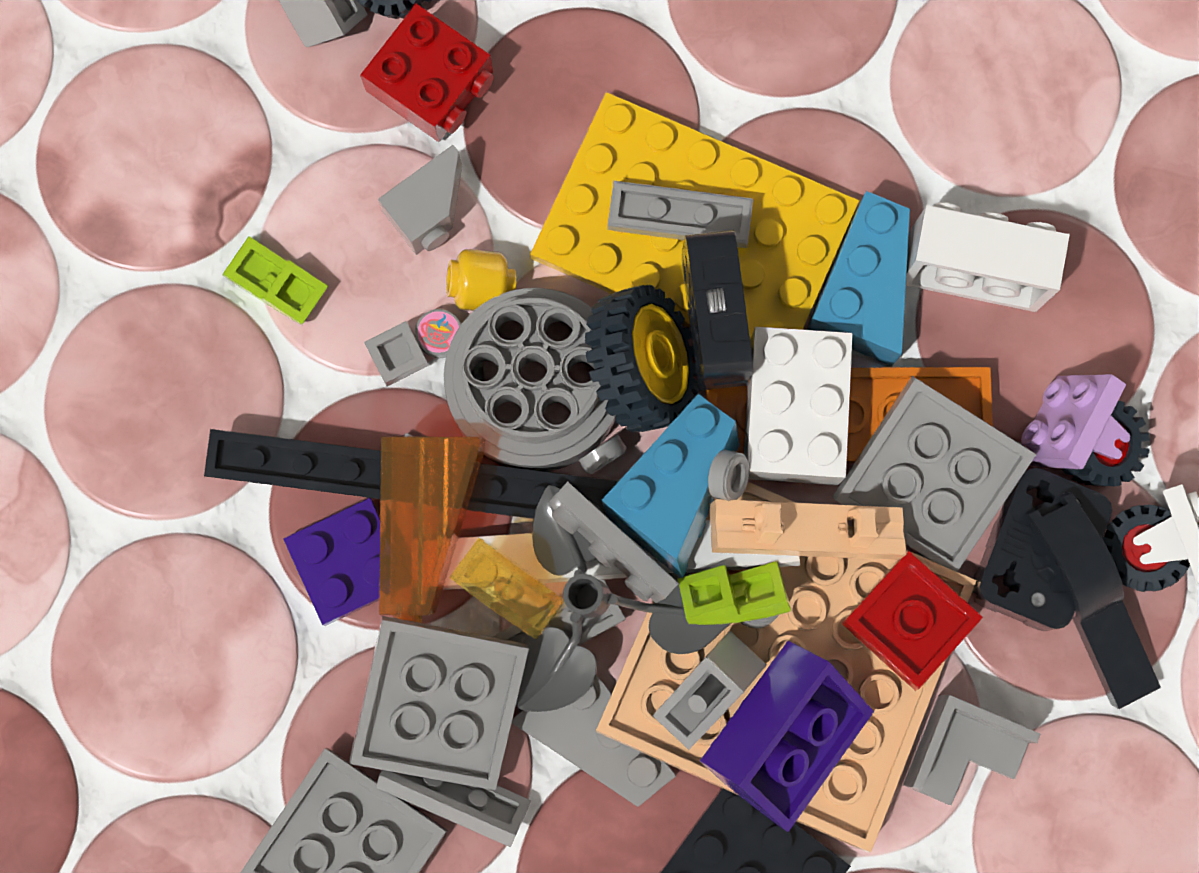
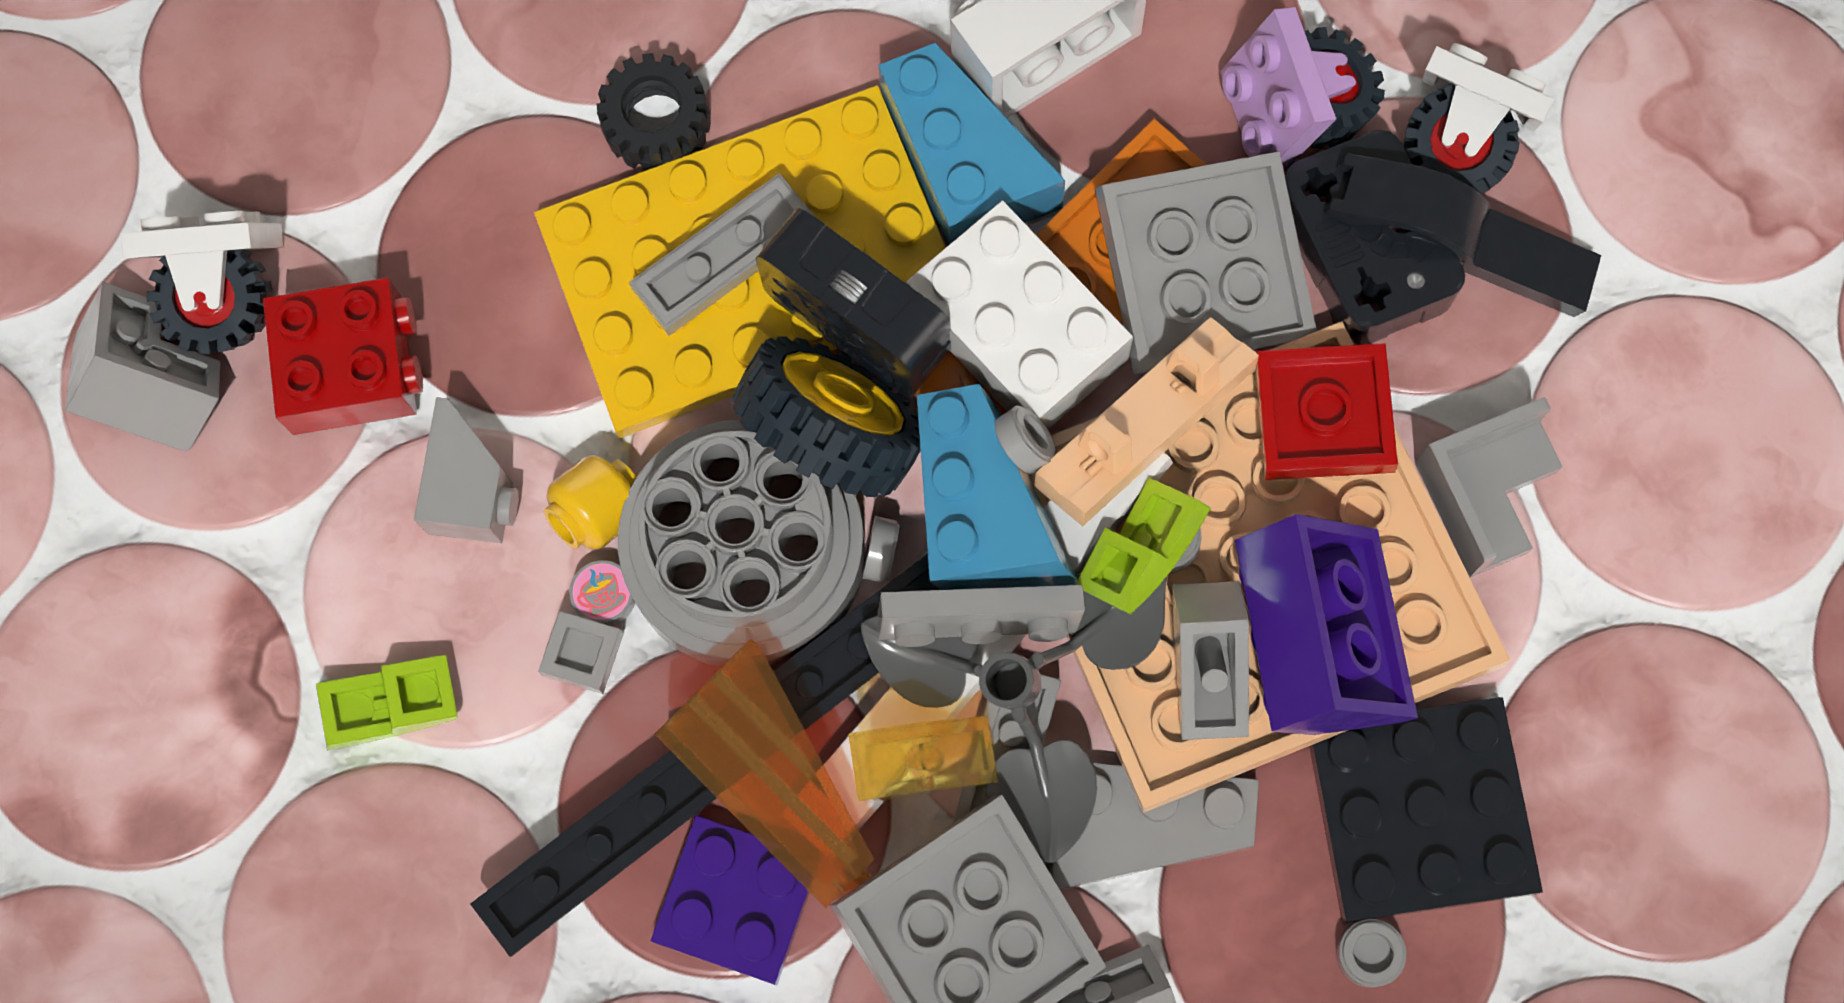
camera: 40 degrees left, 5 degrees down
(730, 73) = (644, 81): none -> black tyre

